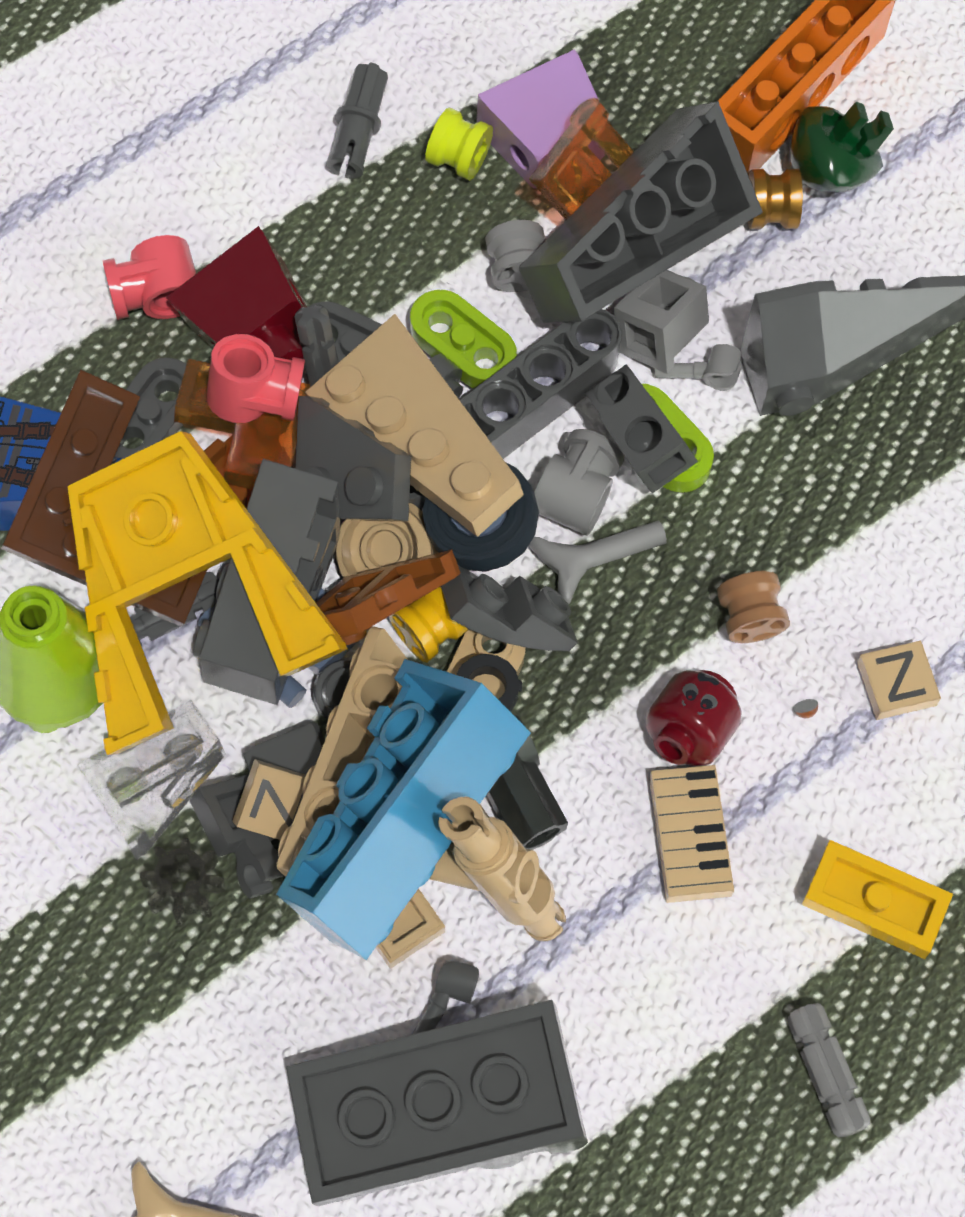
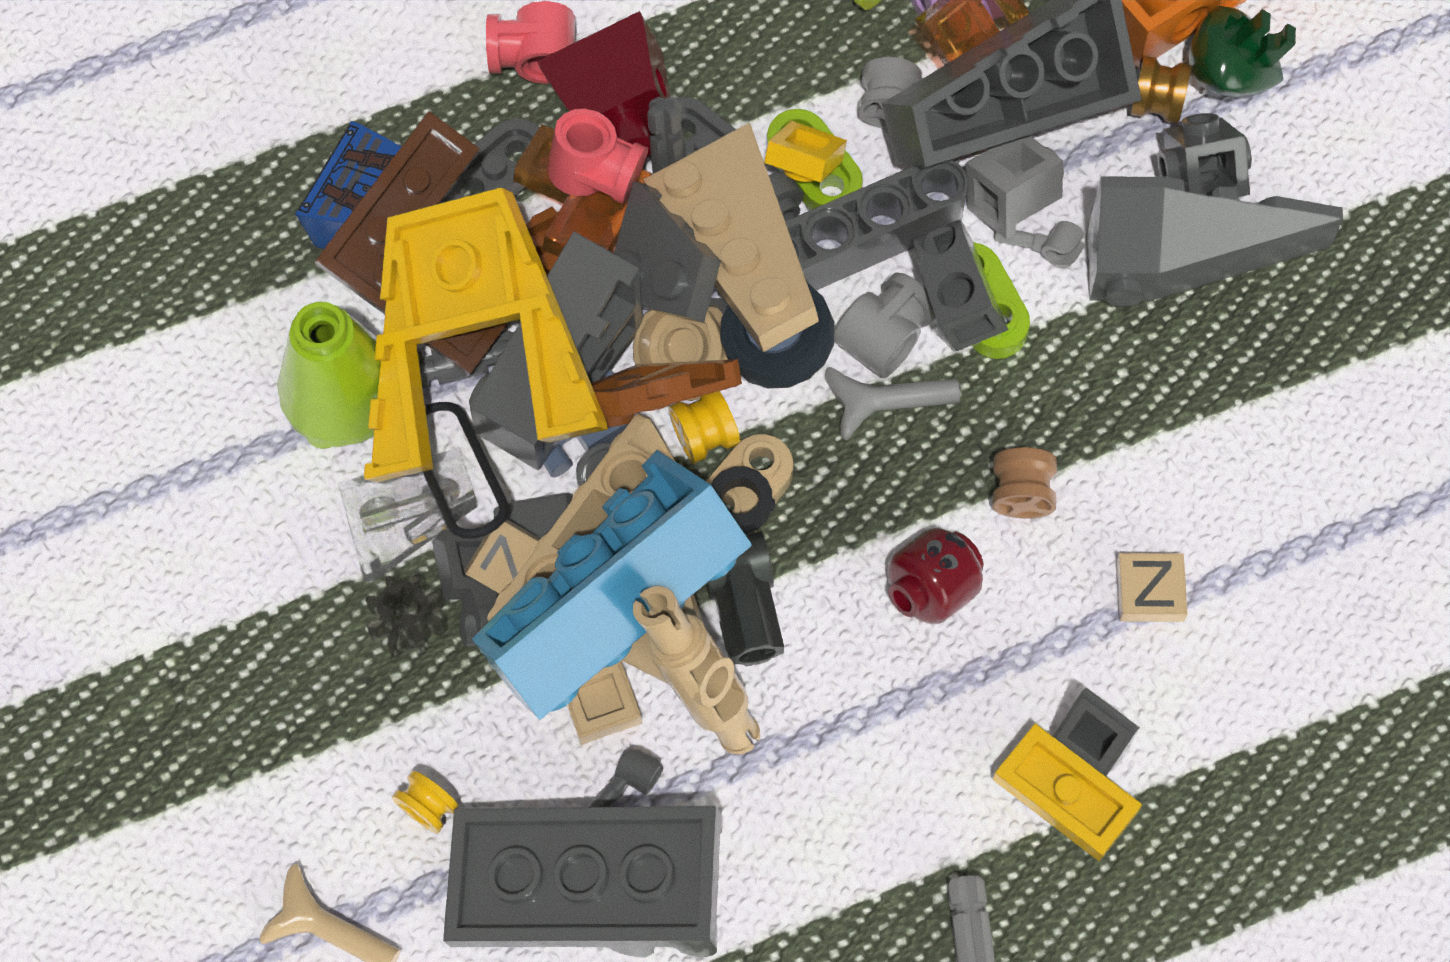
camera: 20 degrees right, 0 degrees up
(228, 716) = (487, 471): none -> black piece
(253, 1066) = (425, 801): none -> yellow bush
(456, 331) = (805, 152): none -> yellow plate
(516, 615) = (790, 439): dark grey slope -> none
(691, 834) = (903, 686): tan tile -> none
(806, 708) = (1052, 594): light grey piece -> none
(837, 250) = (1206, 155): none -> dark grey brick
(891, 833) = (1096, 732): none -> dark grey slope

